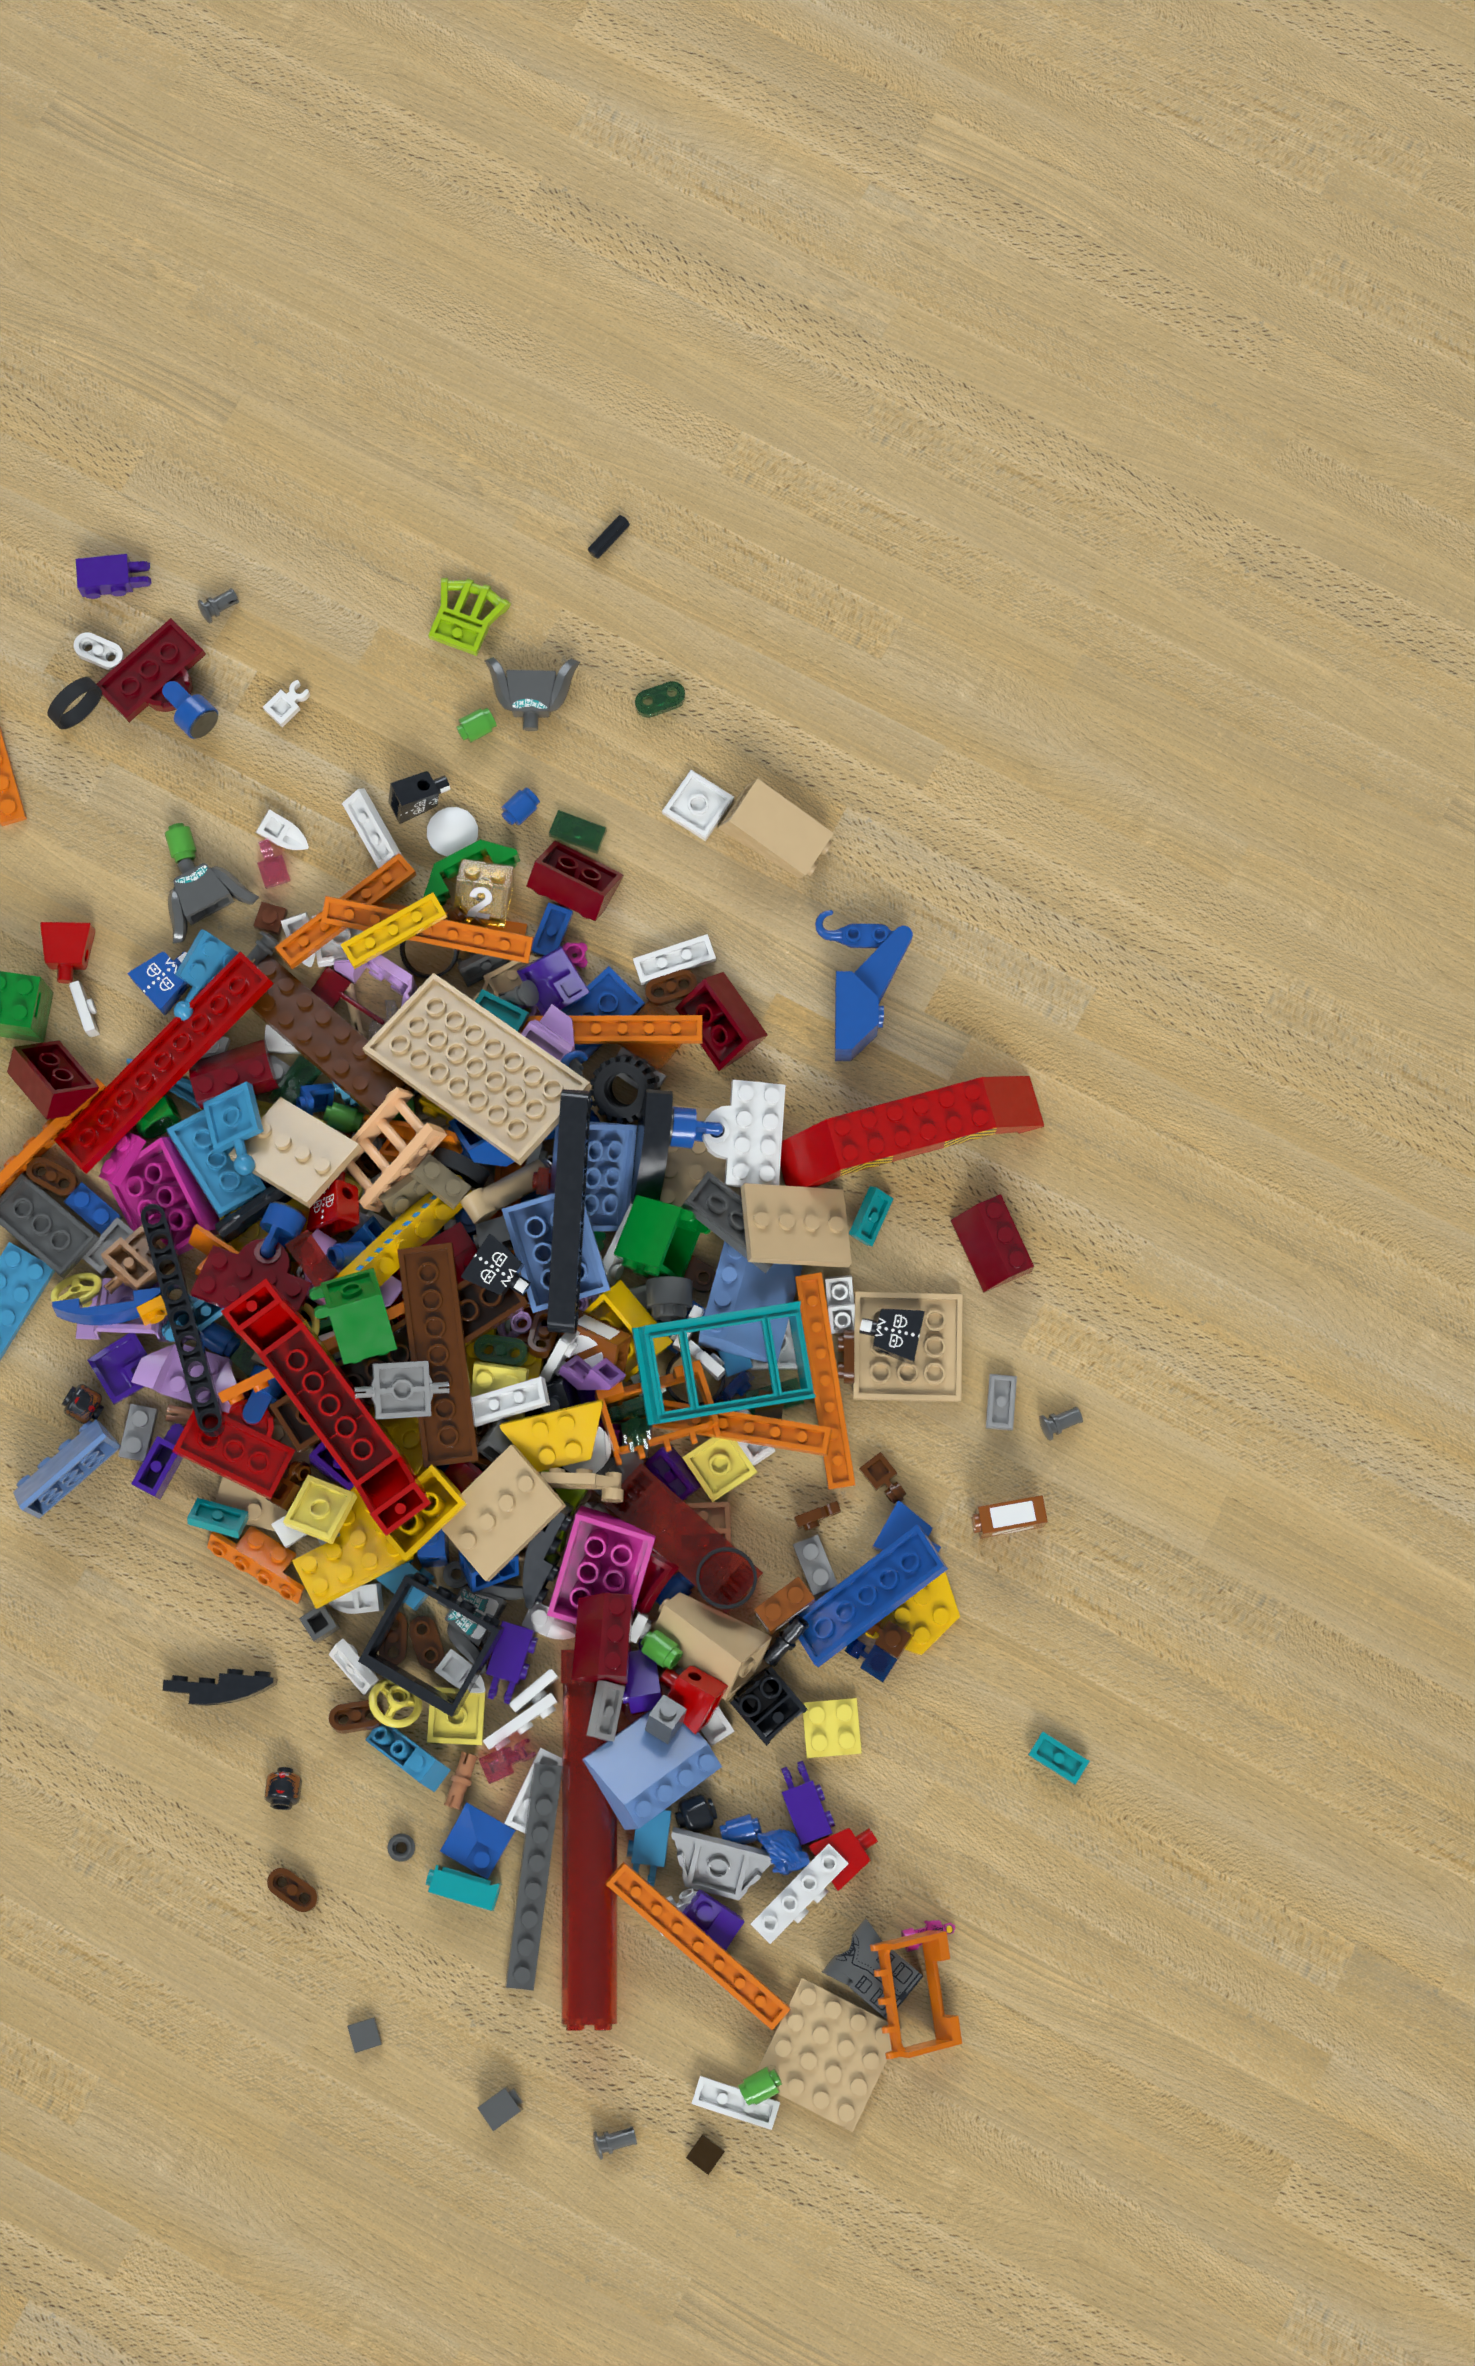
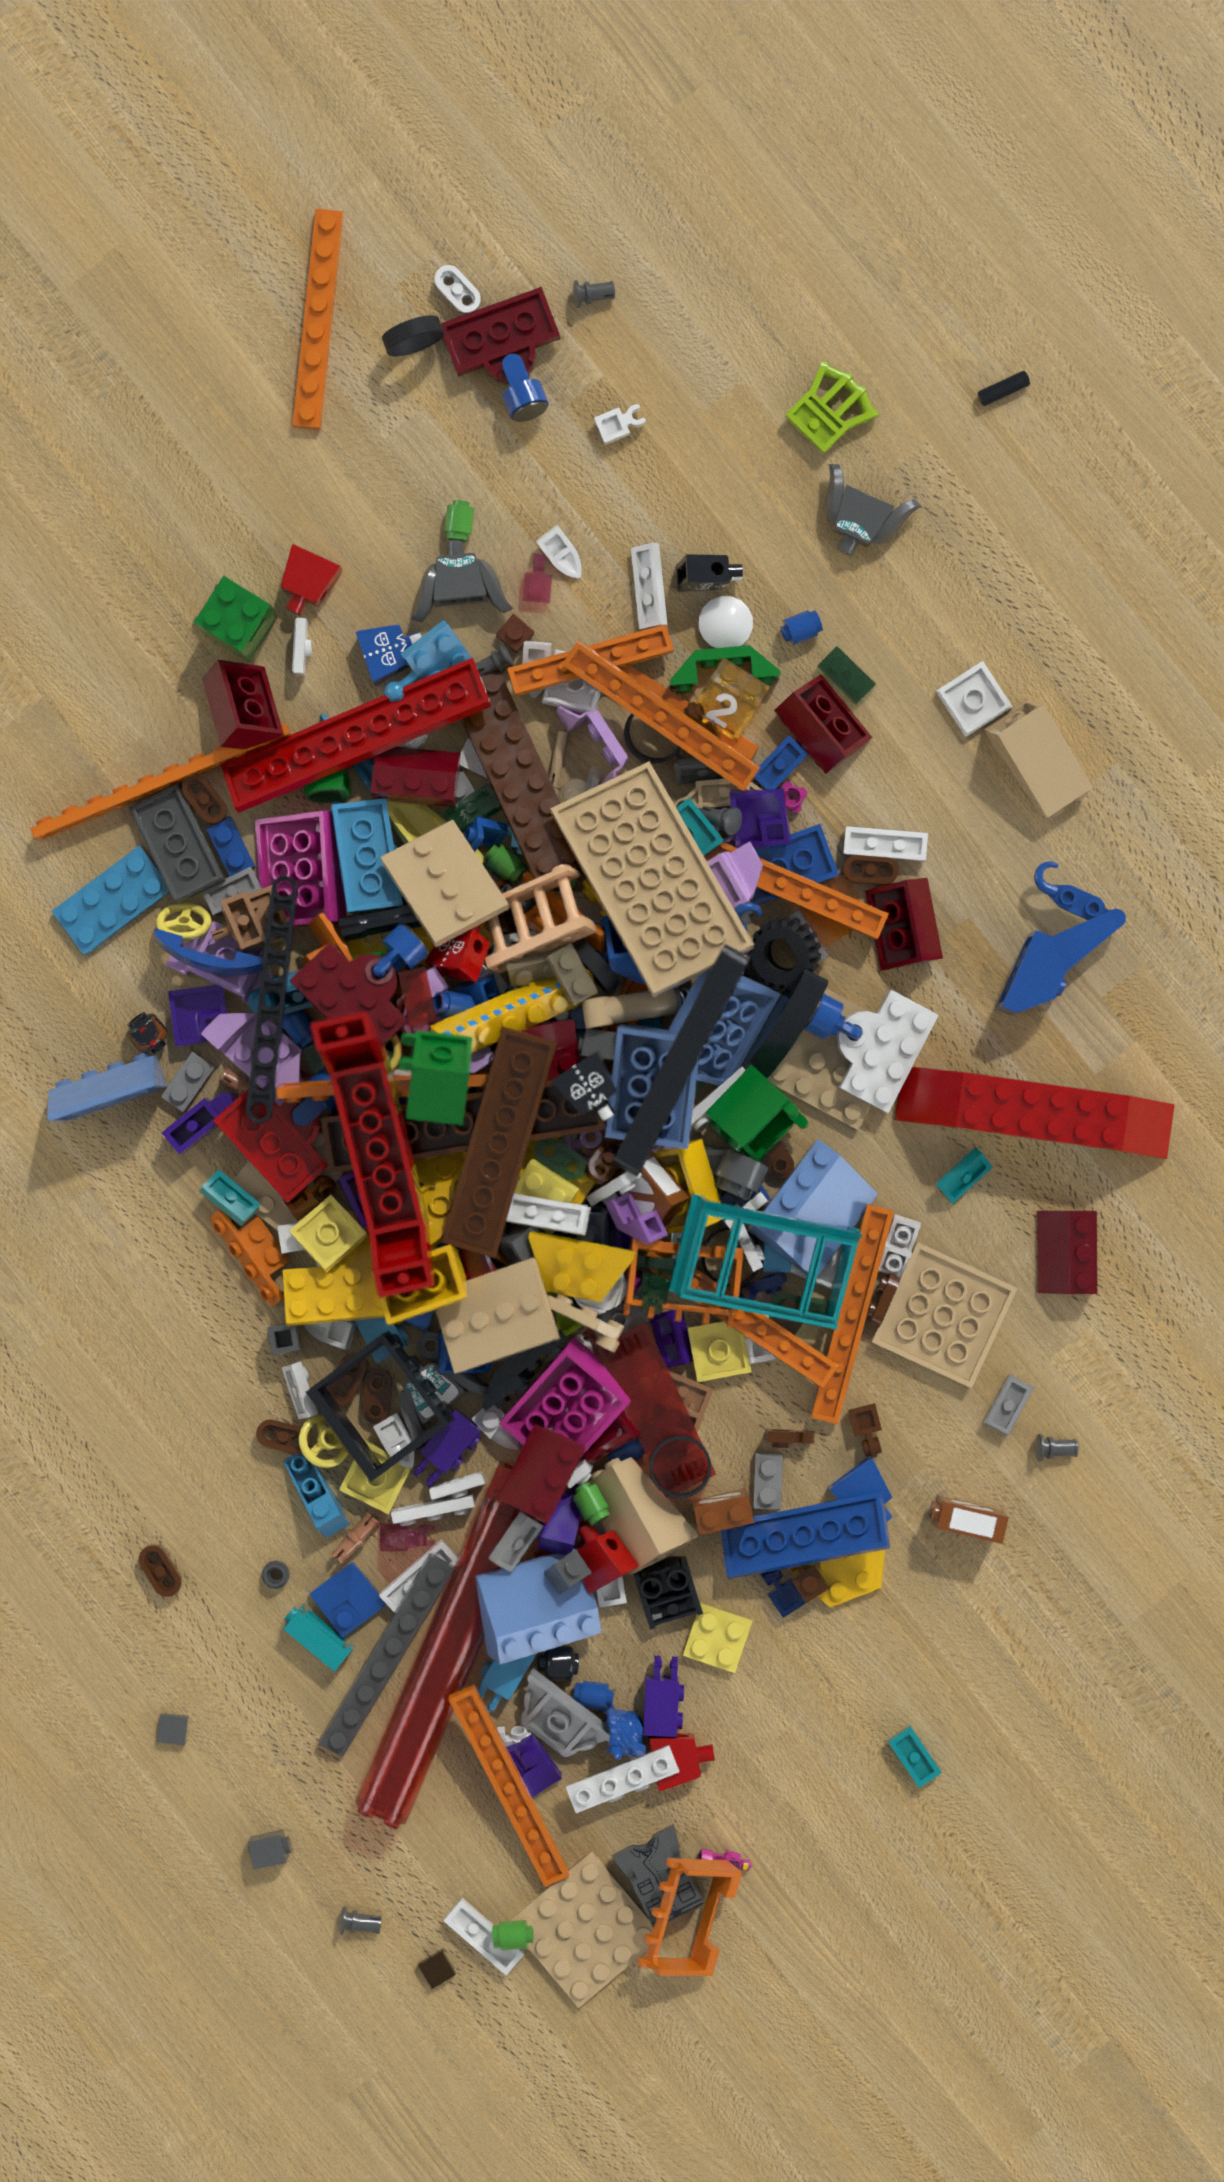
camera: 20 degrees right, 10 degrees up
(109, 575) = (499, 216): dark purple hinge -> none
(121, 1159) = (277, 813): dark pink plate -> none
(152, 1311) = (247, 977): light orange plate -> none
(230, 1687) = (178, 1361): black slope -> none
(231, 1121) = (398, 826): dark azure plate -> none
(283, 1789) = (188, 1475): black head -> none
(331, 988) = (544, 729): dark red piece -> none
(393, 930) = (628, 706): yellow plate -> none
(401, 1390) = (450, 1164): light grey plate -> none
(476, 725) = (793, 525): bright green brick -> none
(542, 1180) = (667, 1014): clear red plate -> none
(661, 700) = (983, 576): clear green plate -> none
(721, 1212) = (834, 1130): dark grey tile -> none
(785, 1640) = (709, 1542): black pin -> none
(795, 1225) = (889, 1156): tan plate -> none
(895, 1333) = (938, 1300): black torso -> none

